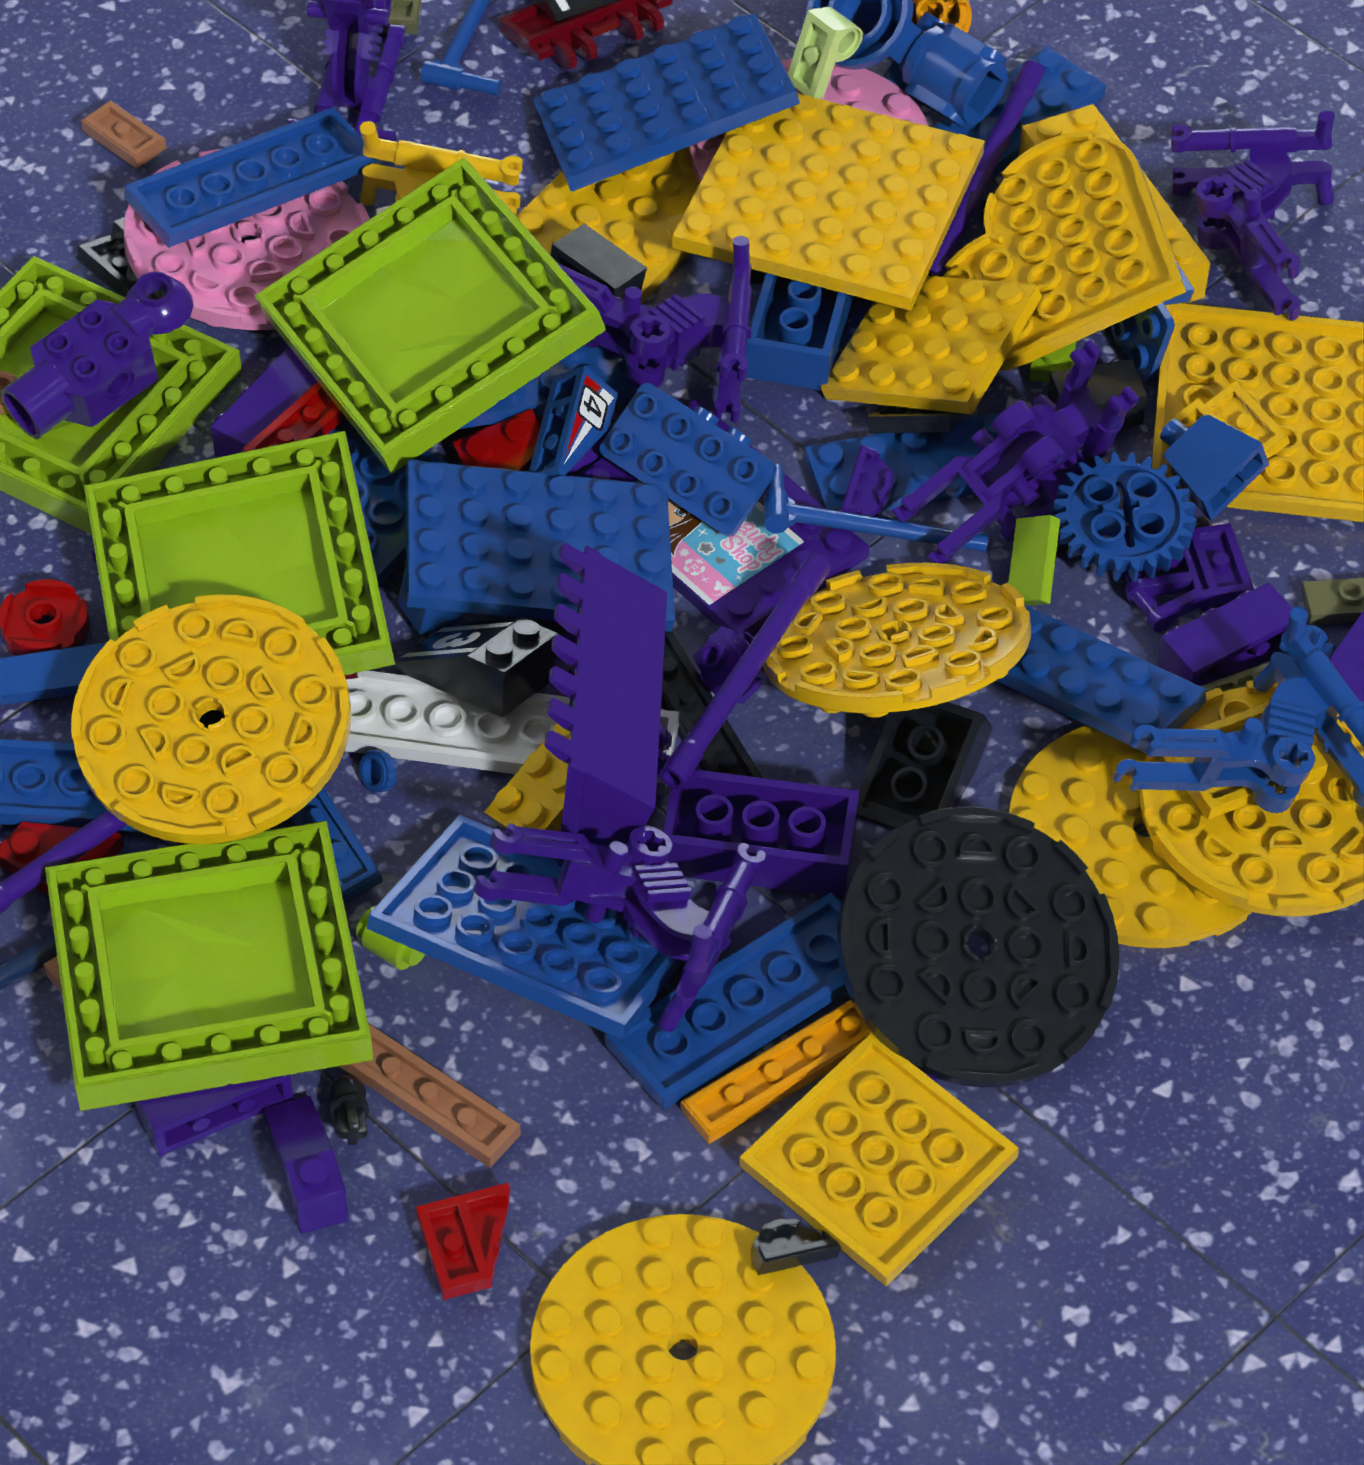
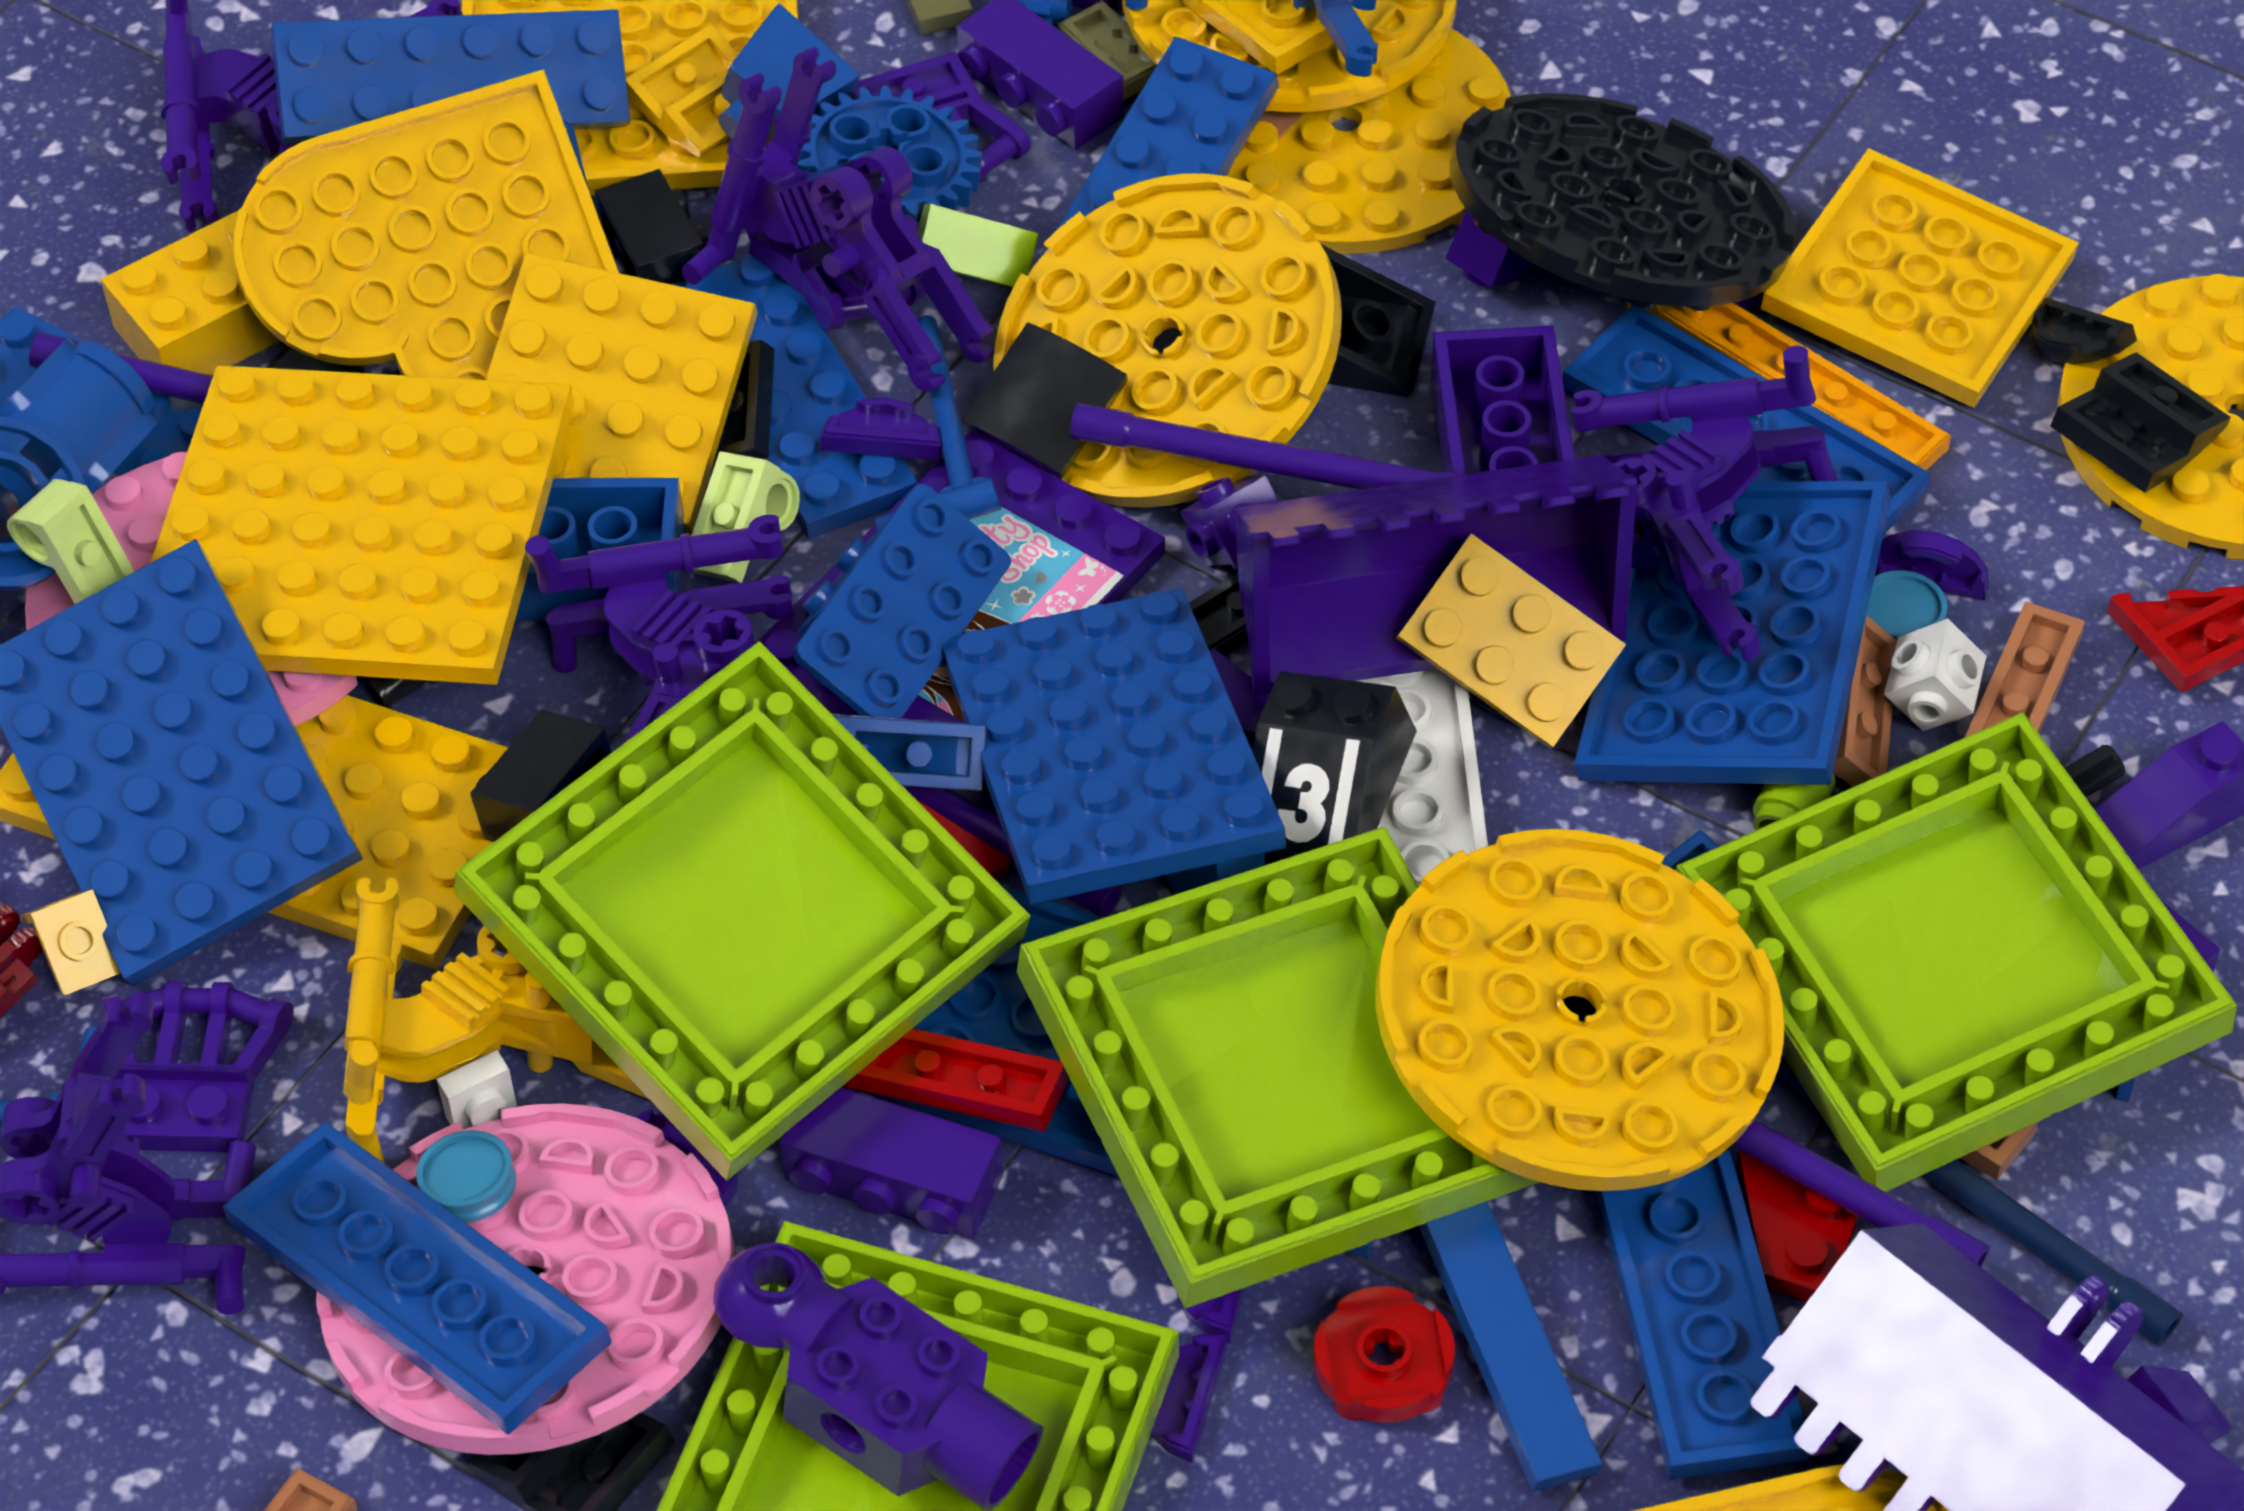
camera: 100 degrees left, 0 degrees up
(58, 532) = (1189, 1395): none -> dark purple tile
(321, 214) = (468, 1174): none -> dark azure piece
(443, 111) = (207, 1101): none -> dark purple plate
(460, 998) = (1868, 716): none -> nougat plate
(462, 1041) = (1935, 675): none -> white brick
(548, 1059) = (1905, 602): none -> dark azure piece
(566, 70) = (74, 941): none -> yellow bracket
(582, 1079) = (1939, 557): none -> dark purple tile
(668, 1246) = (2140, 422): none -> black slope
(821, 408) = (739, 493): none -> yellowish green plate
(868, 569) = (1034, 395): none -> black slope
(1232, 271) = (371, 68): none -> blue plate

